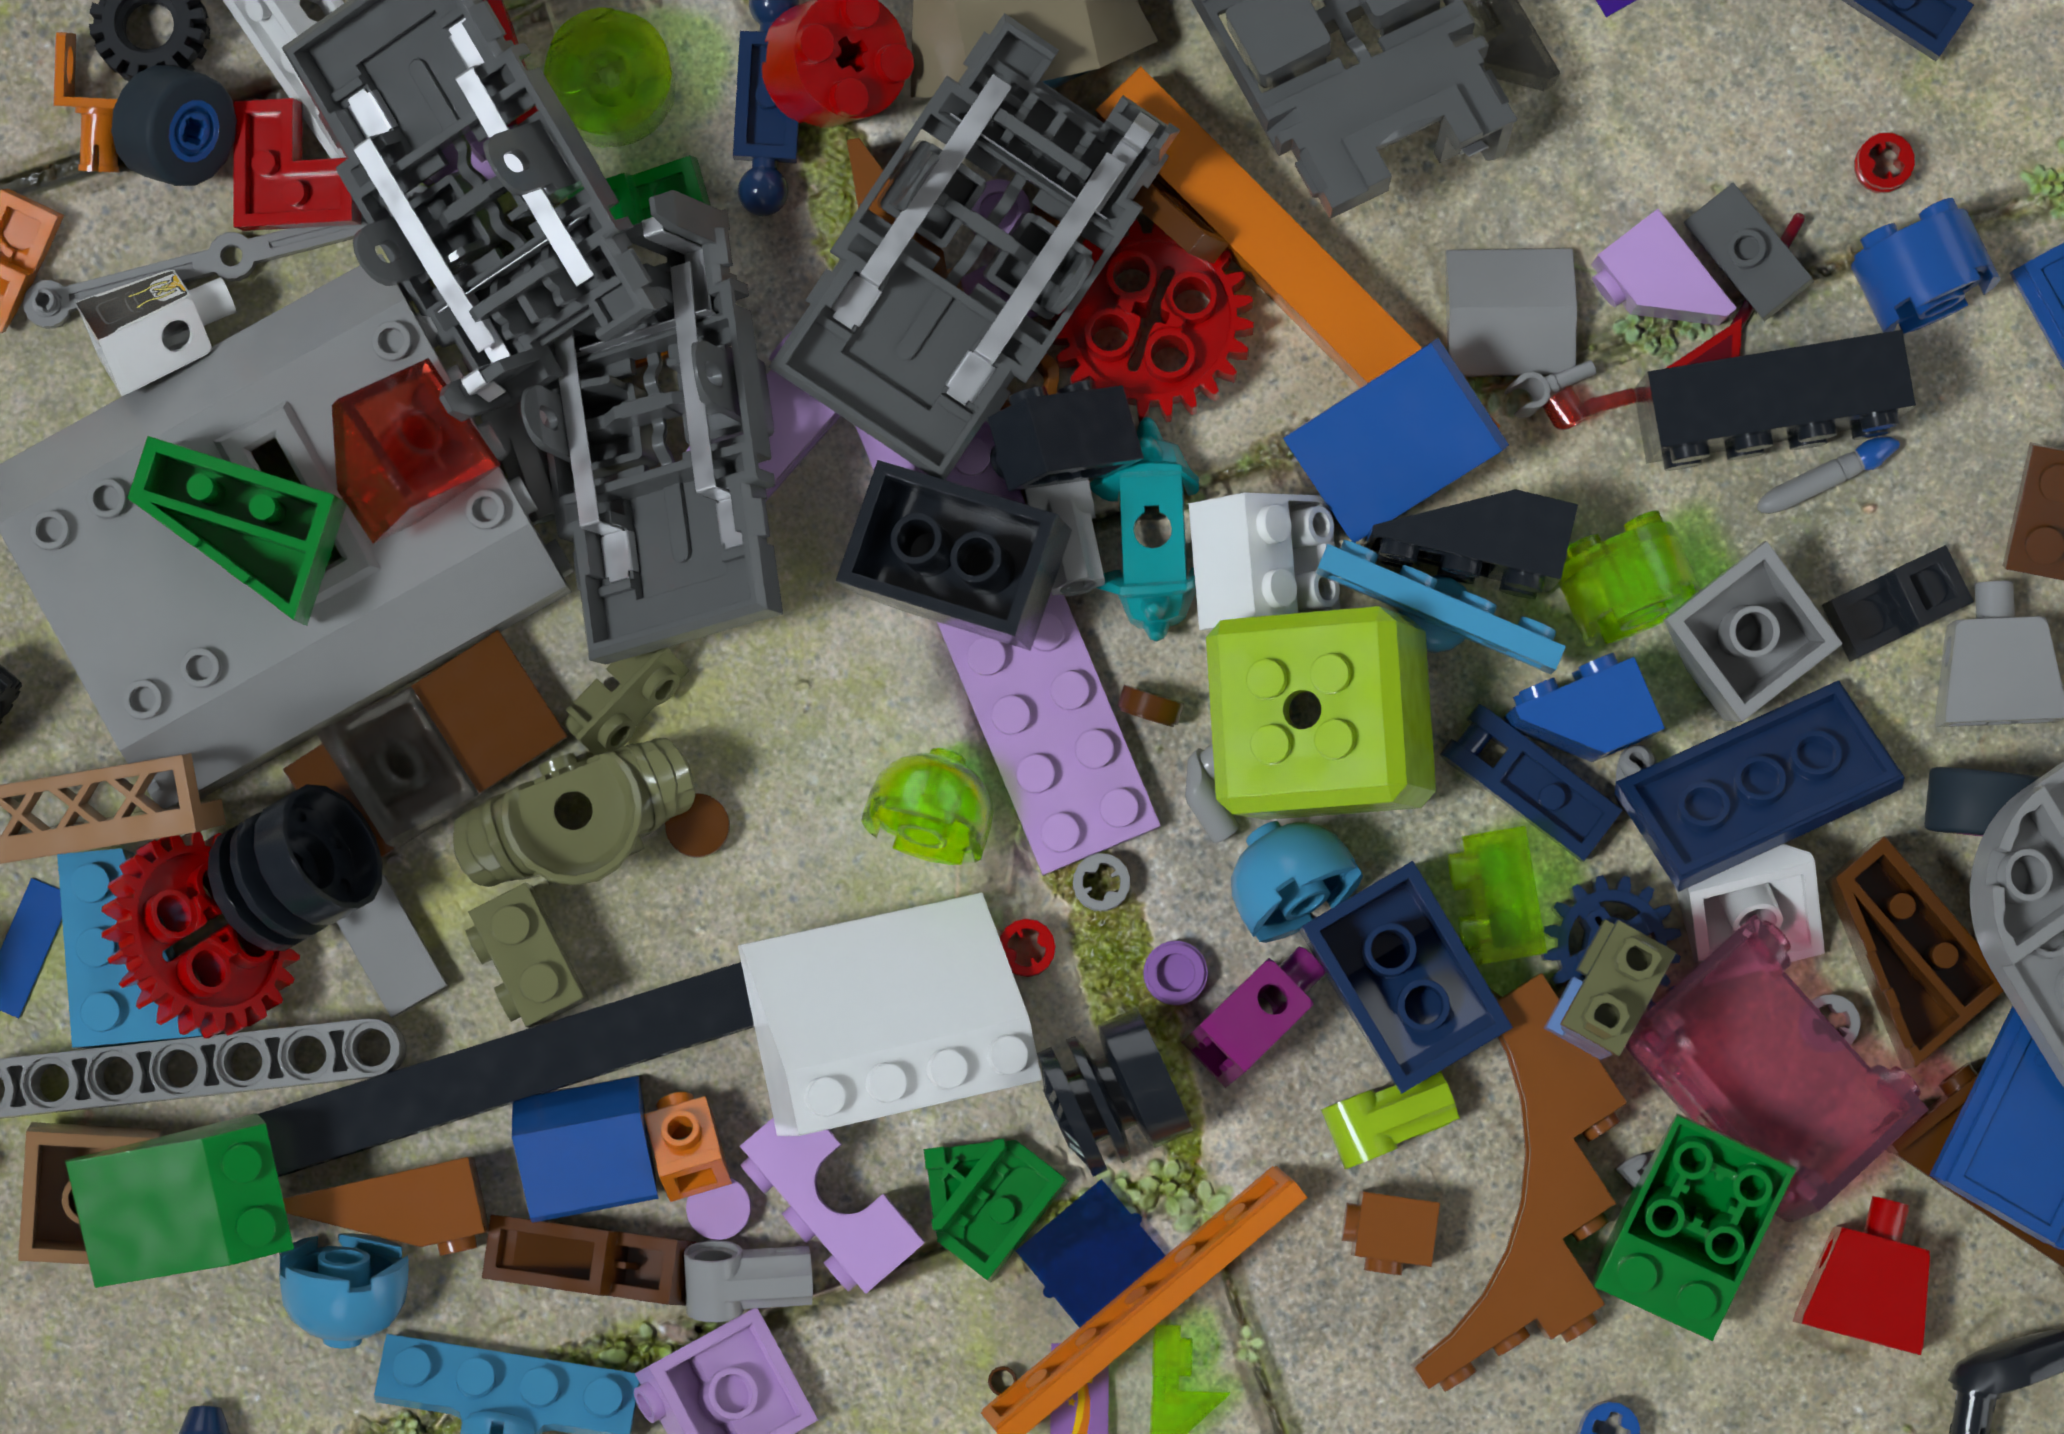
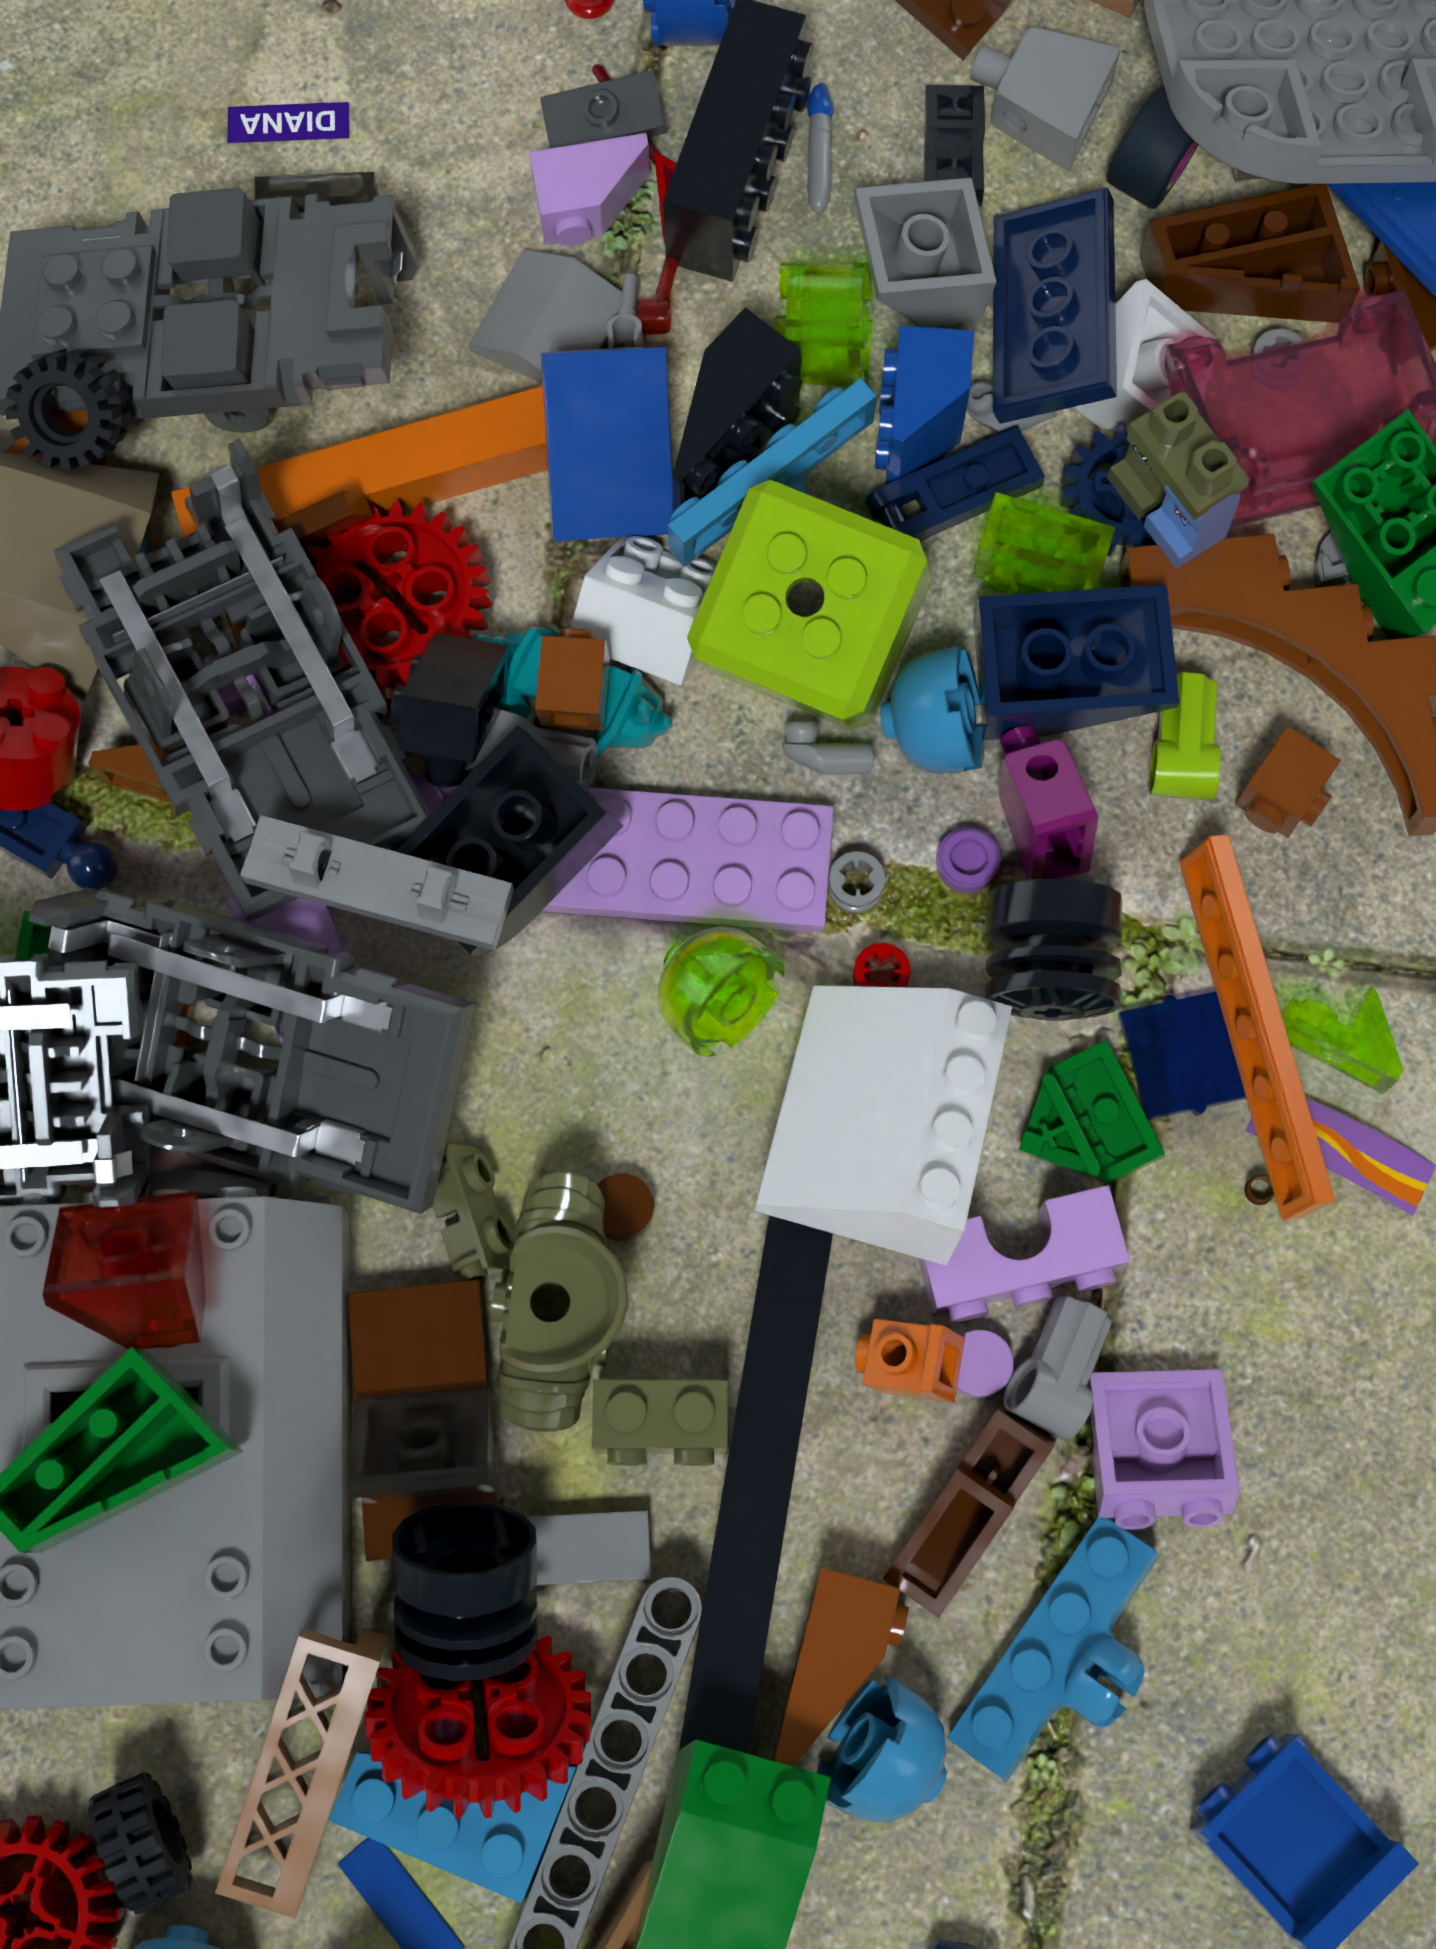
camera: 60 degrees left, 10 degrees down
(583, 1149) = (867, 1456): blue slope -> none
(851, 469) = (378, 883): none -> light grey hinge
(1140, 534) = (572, 680): none -> dark orange brick
(1150, 706) = (724, 762): reddish brown tile -> none

